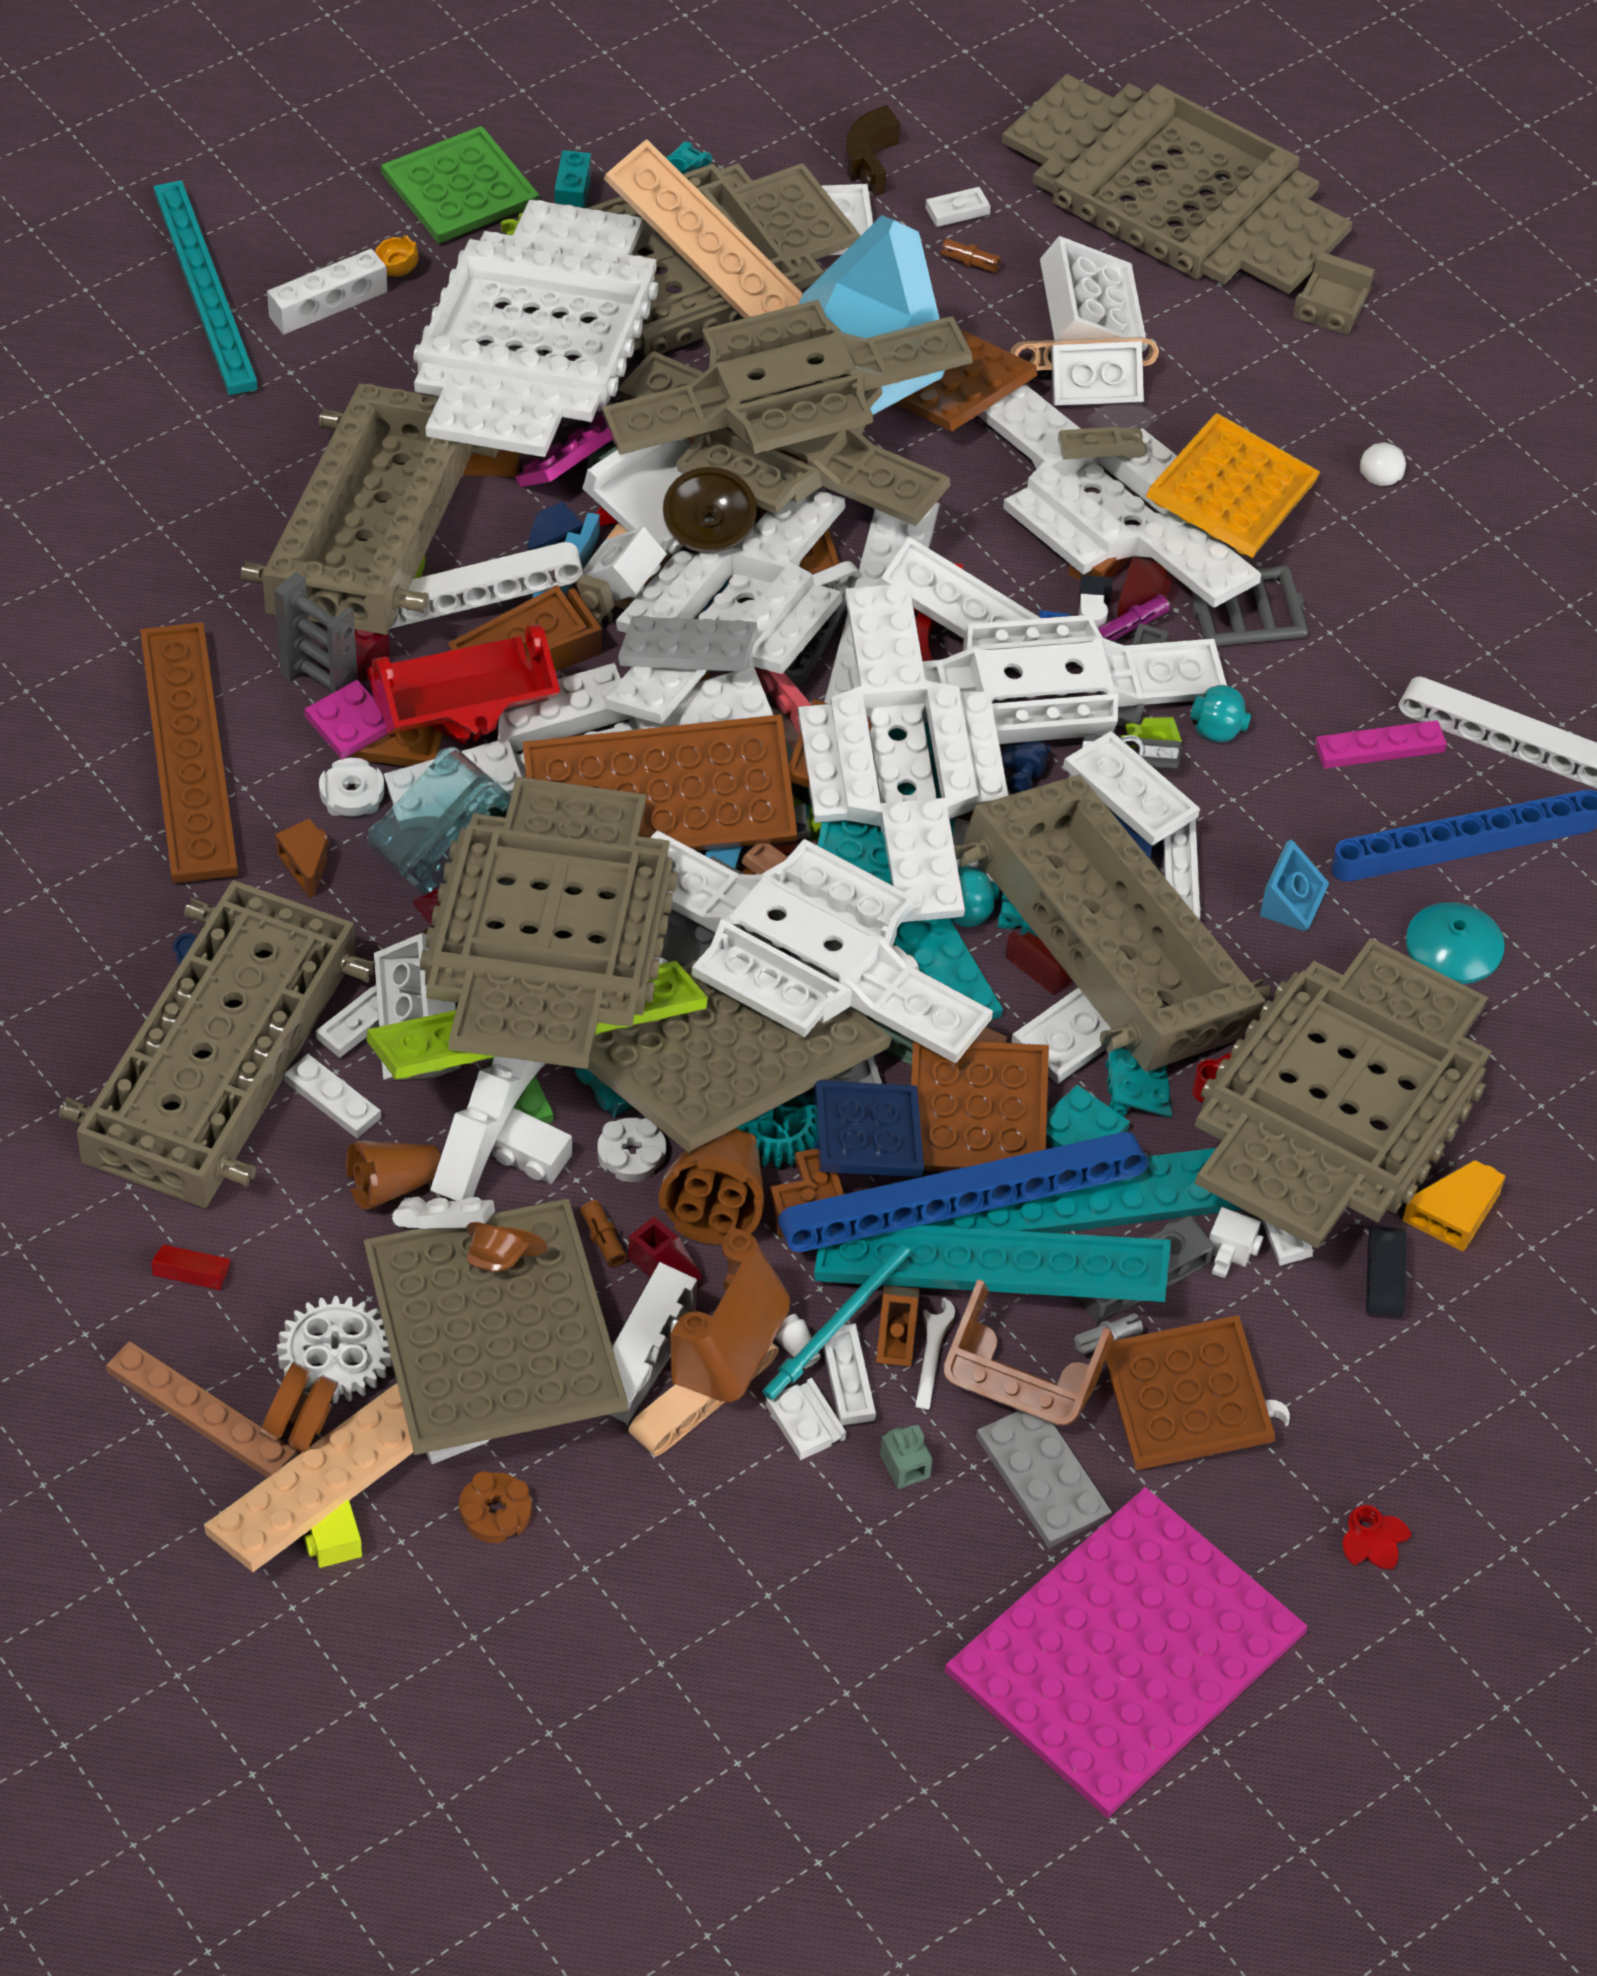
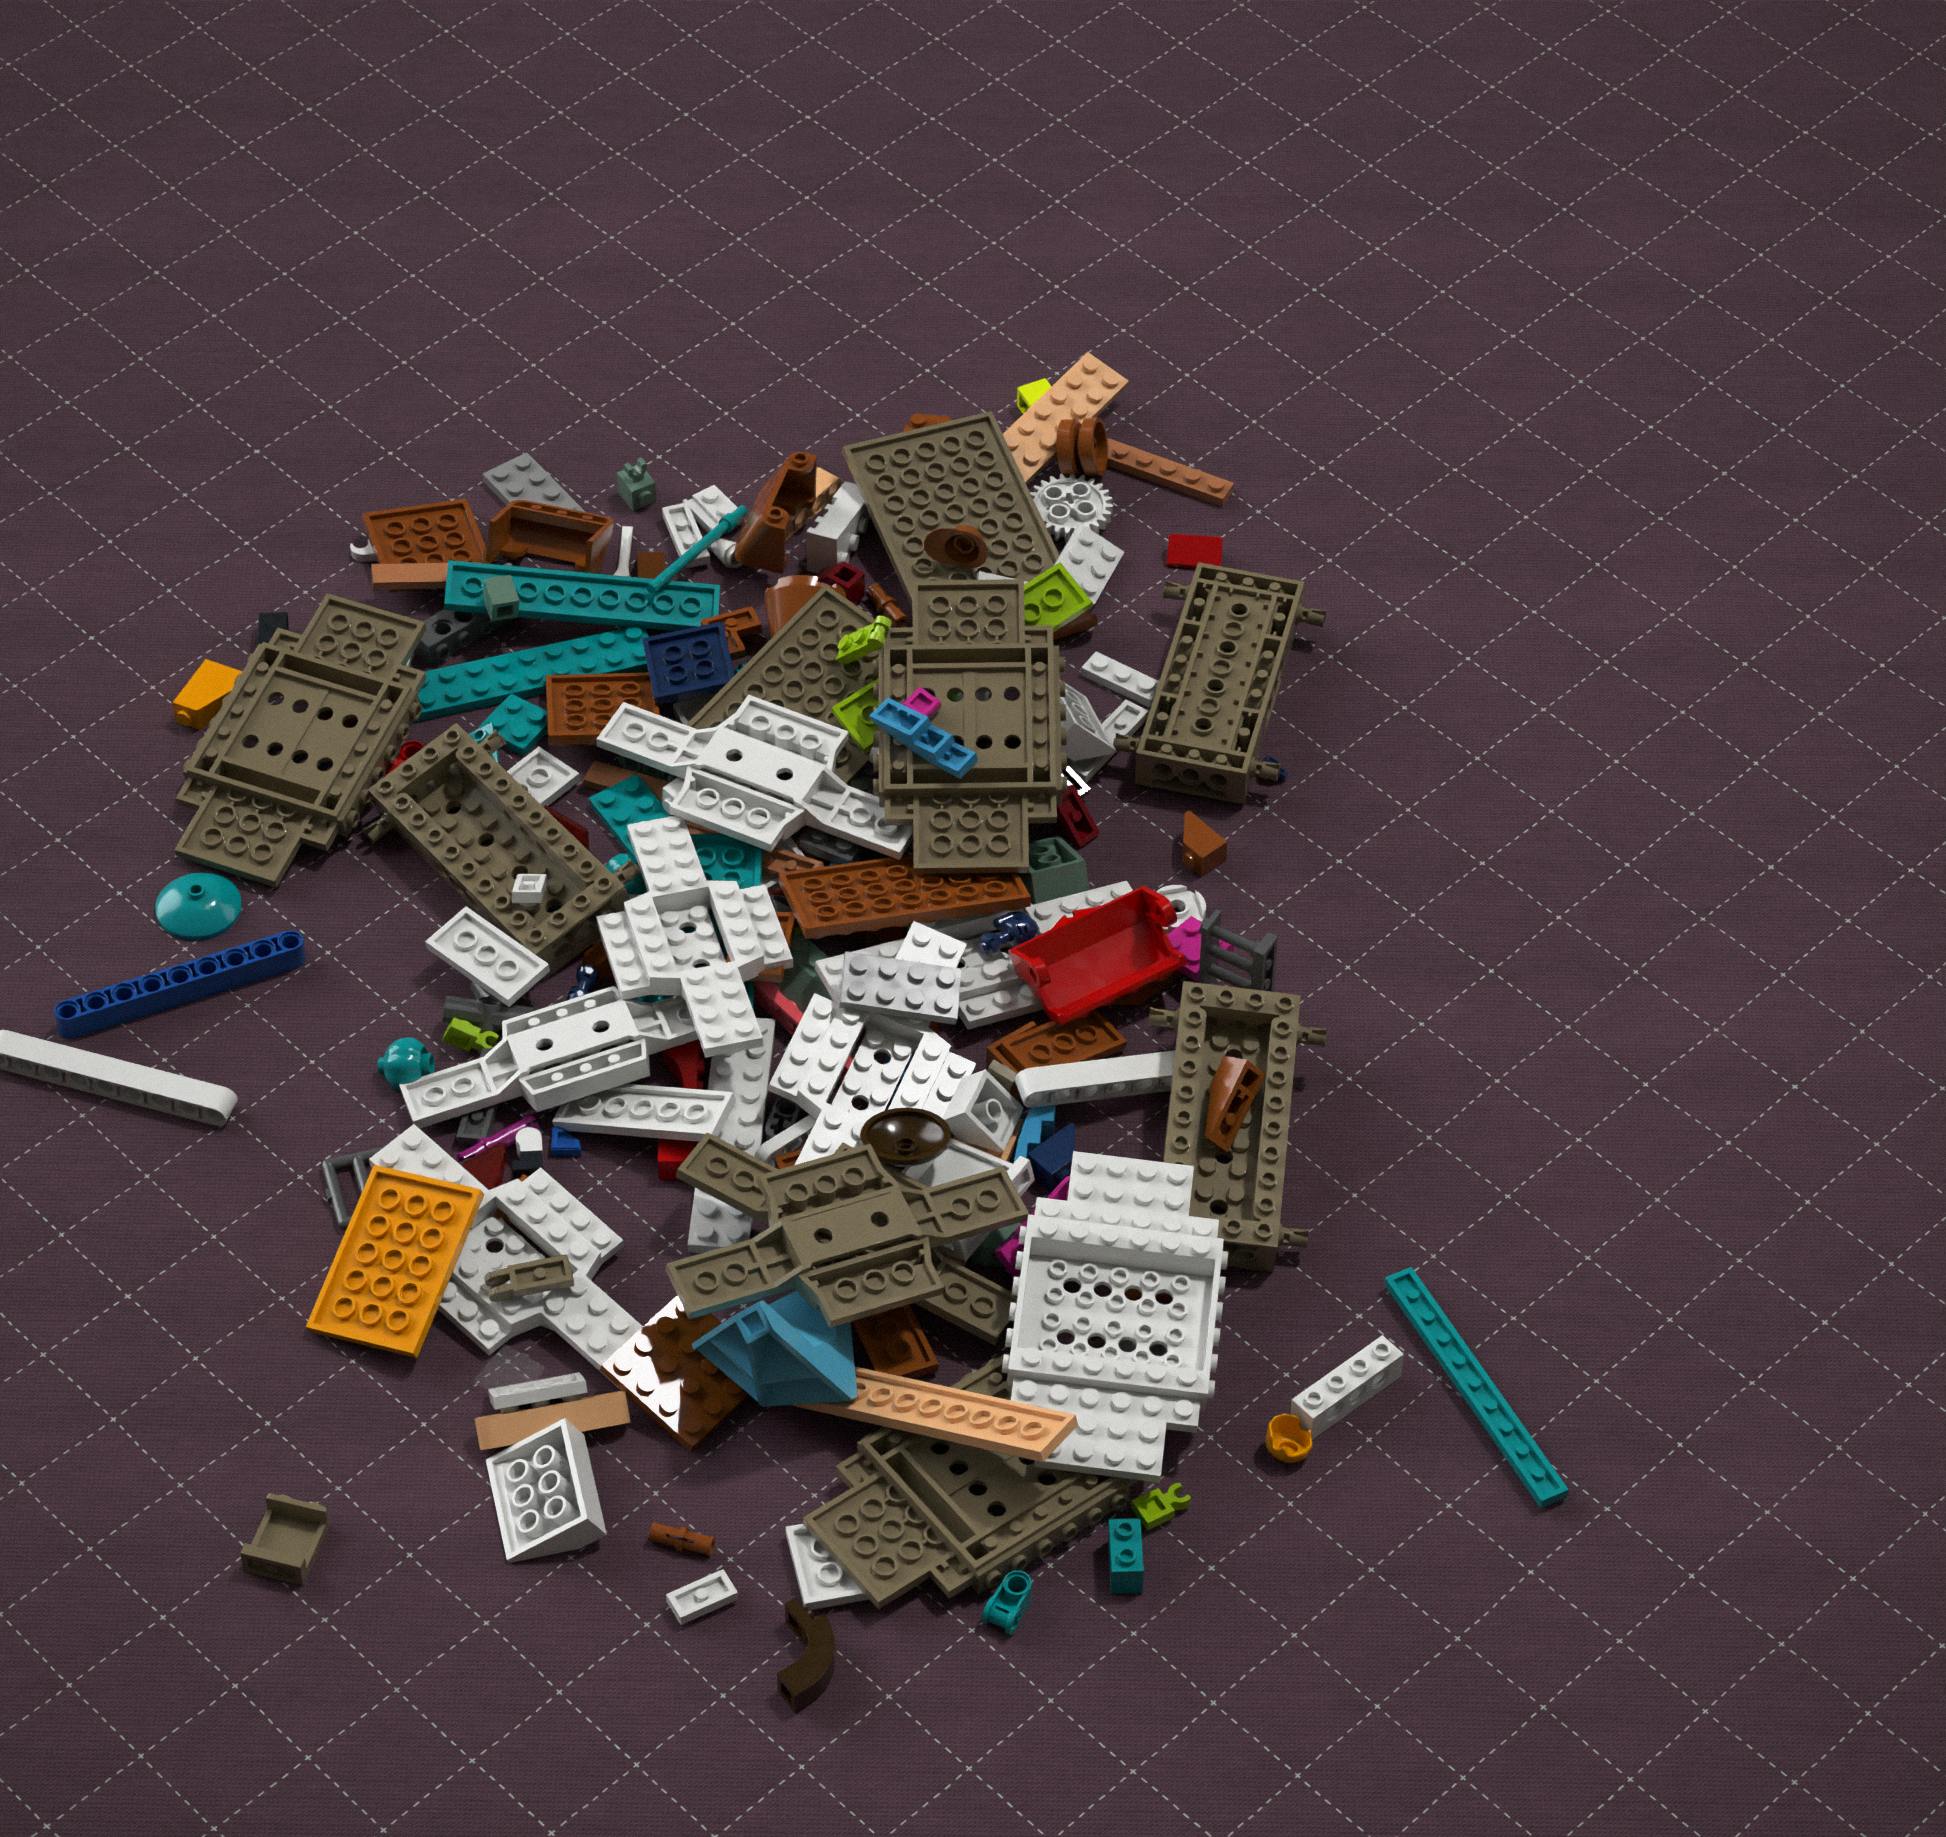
camera: 175 degrees right, 5 degrees down
(188, 753) = (1329, 925): dark orange plate -> none
(339, 1249) = (1089, 560): none -> white plate
(361, 517) = (1230, 1099): none -> dark orange slope
(432, 815) = (1084, 844): clear light blue windscreen -> none
(459, 184) = (1247, 1548): bright green plate -> none
(548, 721) = (1014, 928): none -> dark blue piece
(607, 912) = (923, 702): none -> dark pink tile
(615, 879) = (924, 739): none -> dark azure slope
(657, 1030) = (863, 641): none -> lime plate
(962, 1191) = (601, 638): blue beam -> none
(1082, 844) = (529, 889): none -> white plate
(1099, 1225) = (500, 598): none -> sand green brick
(1104, 144) = (378, 1612): dark tan piece -> none
(1125, 1651) = (468, 405): dark pink plate -> none
(1182, 864) = (438, 911): white plate -> none
(1191, 1318) = (409, 576): none -> nougat tile
(1293, 889) = (342, 919): dark azure slope -> none
(1374, 1542) = (289, 485): red plate -> none
(1380, 744) = (259, 1066): dark pink plate -> none
(1383, 464) = (240, 1350): white hair -> none

